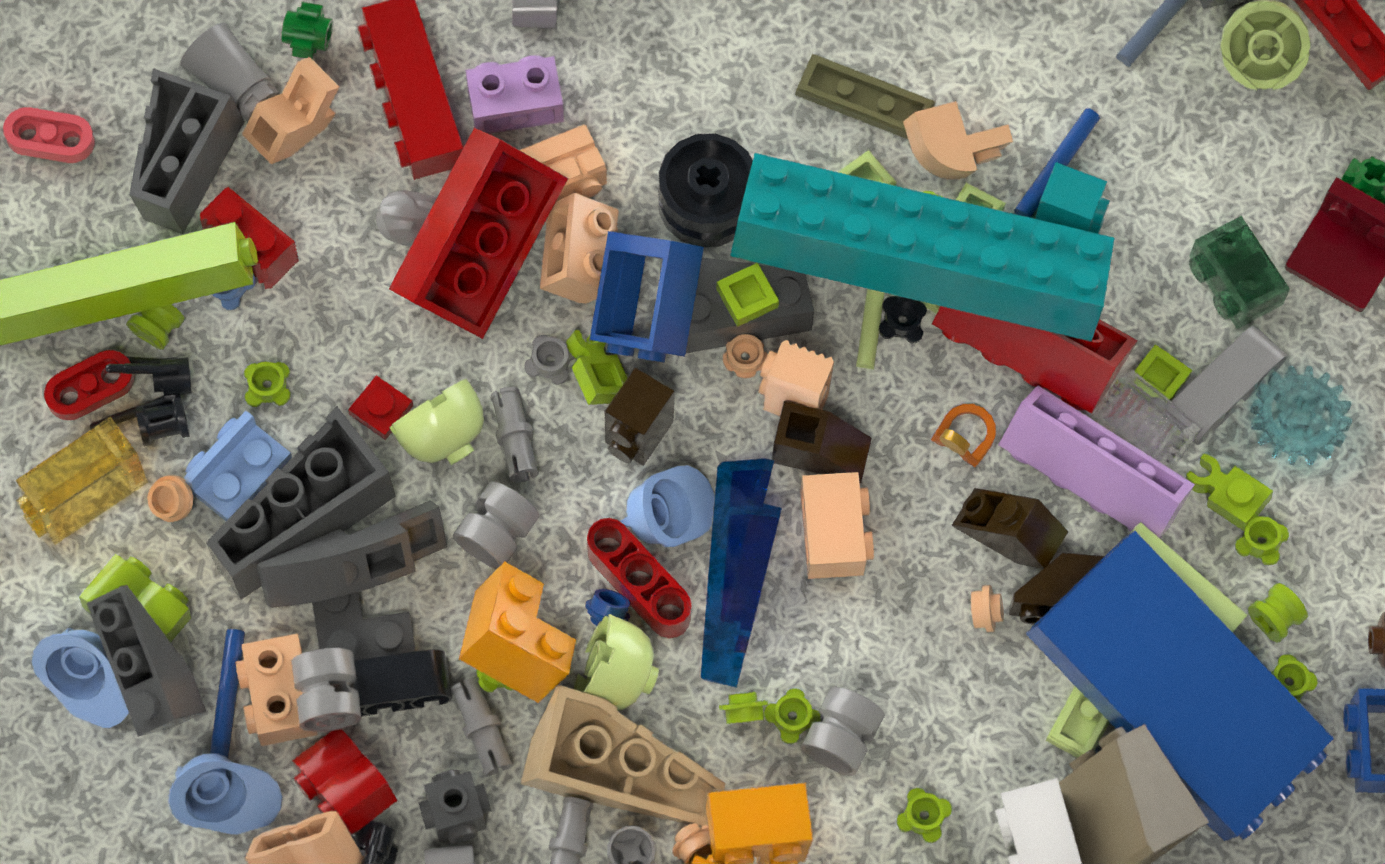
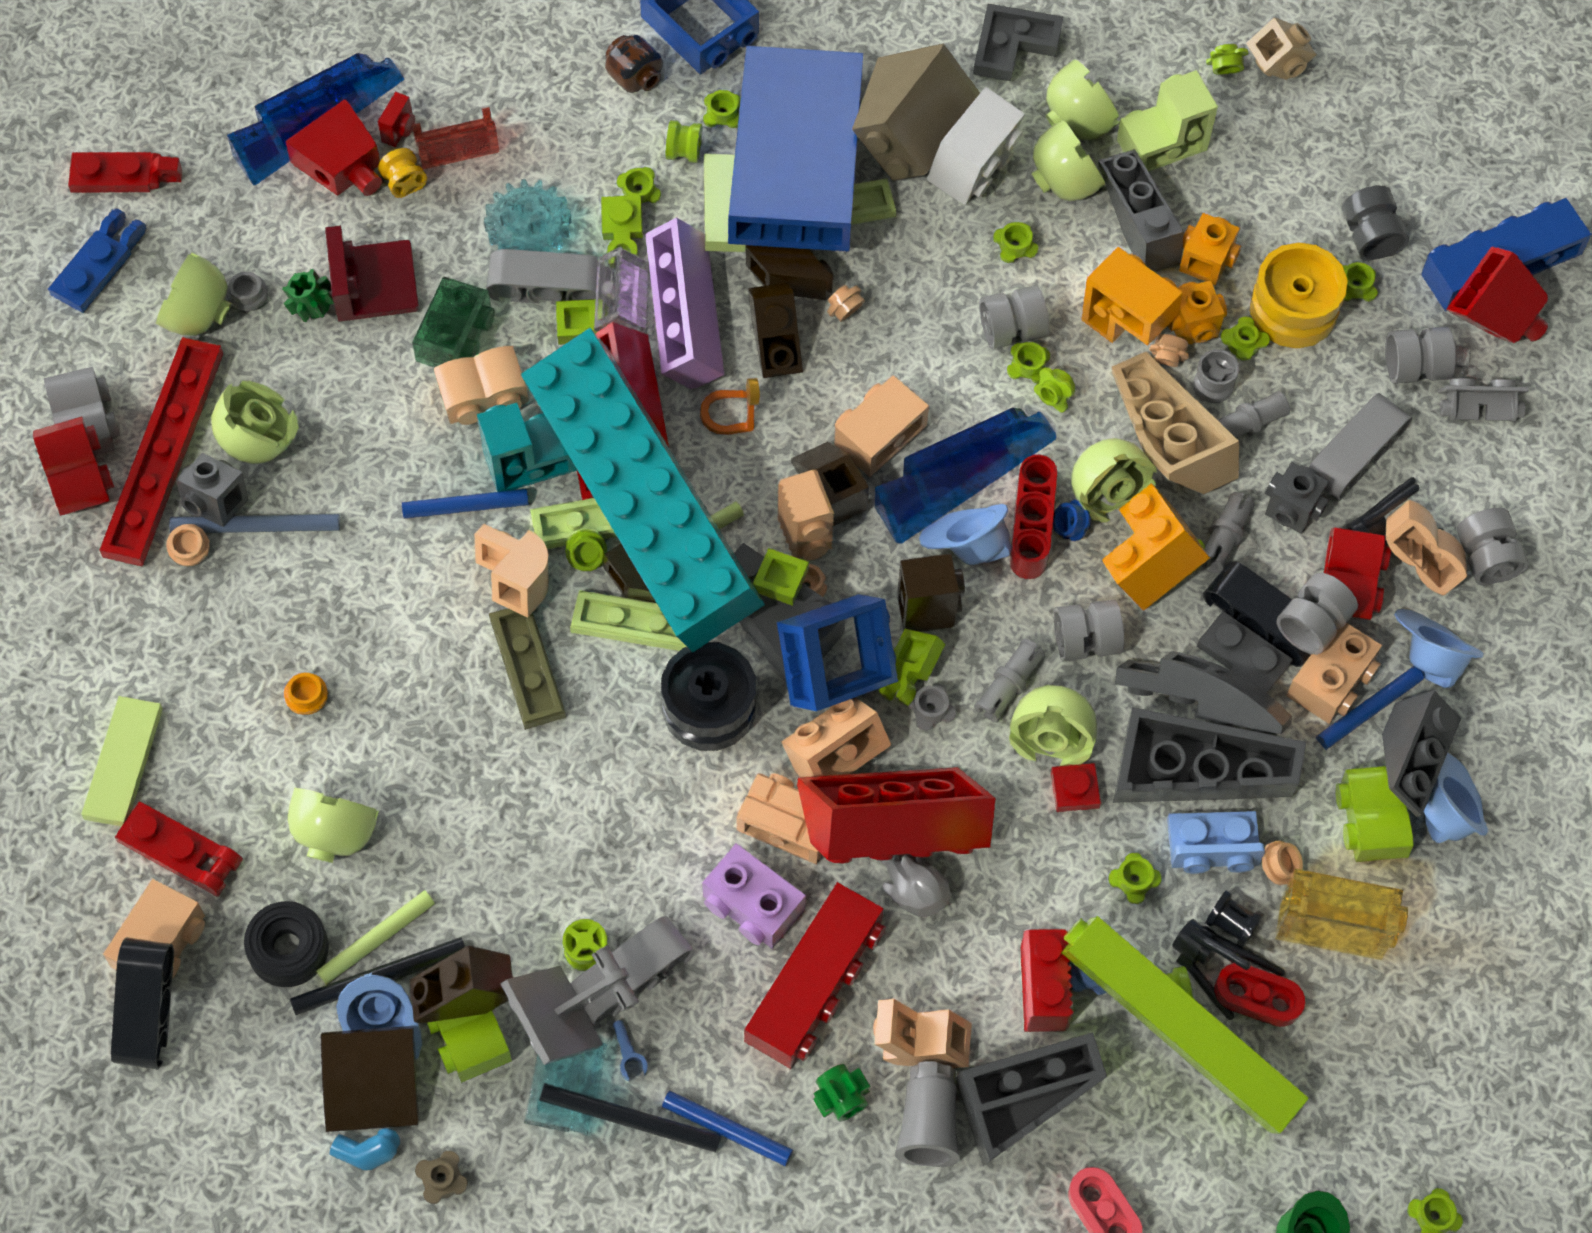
camera: 130 degrees left, 5 degrees down
(1158, 252) = (480, 382): none -> light nougat brick

